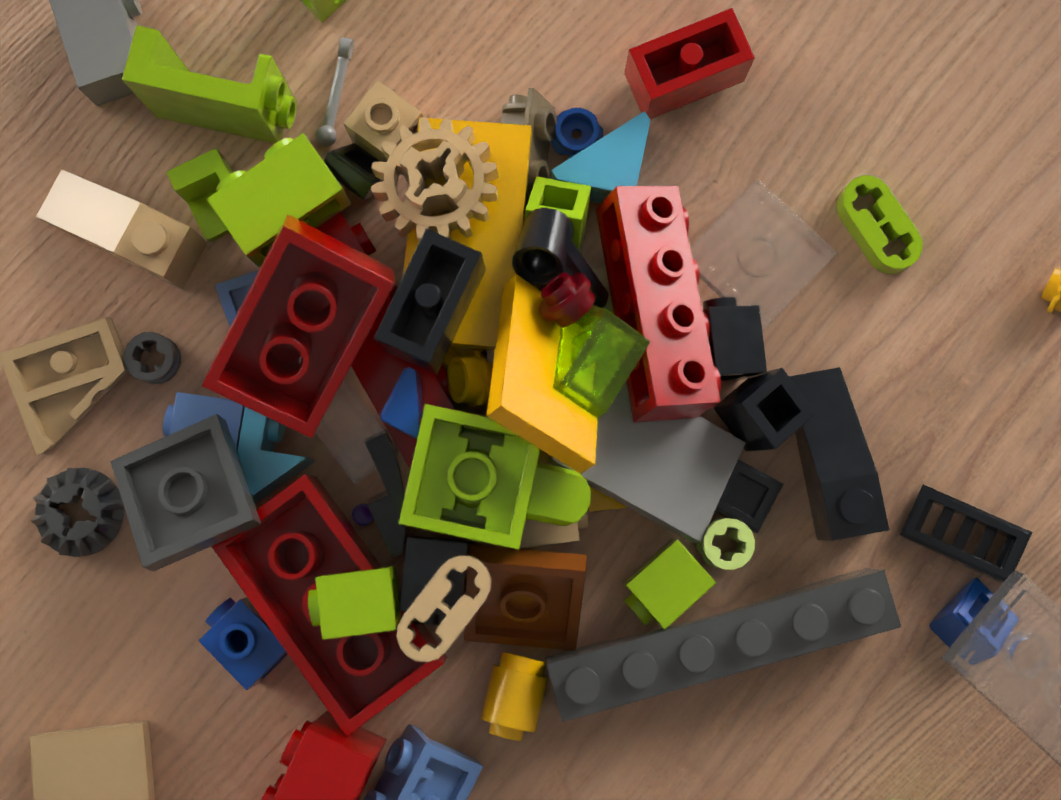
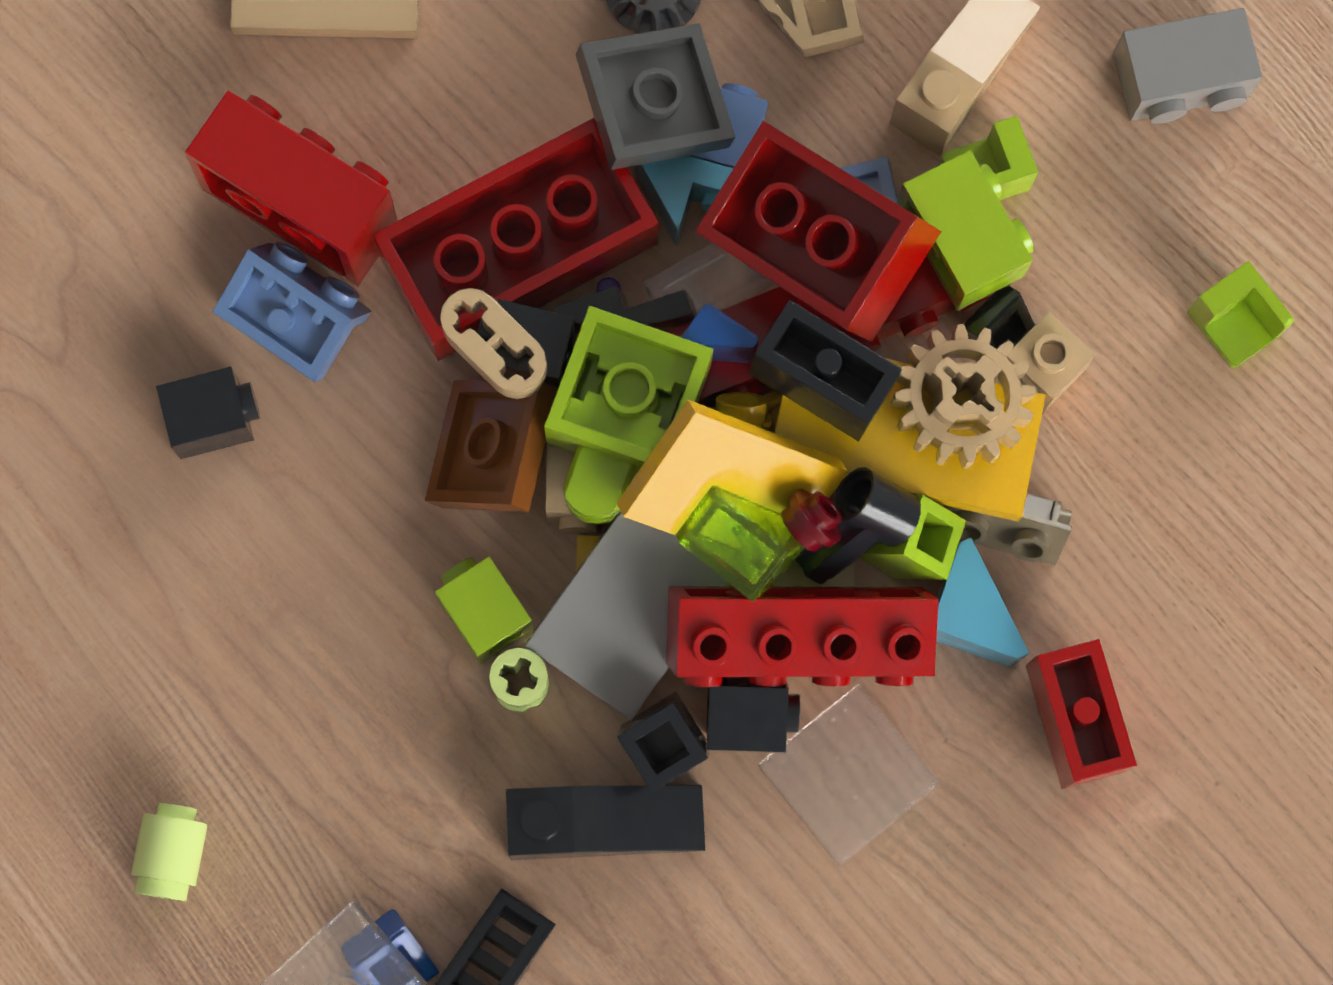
camera: 90 degrees right, 5 degrees down
(139, 370) = (801, 69): dark grey bush -> none
(200, 100) = (1125, 121): lime panel -> none
(242, 642) = (485, 141): blue brick -> none
(326, 134) = (1049, 300): light grey hinge -> none
(355, 603) = (513, 255): lime brick -> none
(514, 696) = (385, 425): yellow brick -> none
(573, 120) = (1030, 571): blue plate -> none
(722, 644) = (409, 656): dark grey arch -> none
(748, 496) = (571, 717): black tile -> none
(889, 217) = (875, 937): lime beam -> none

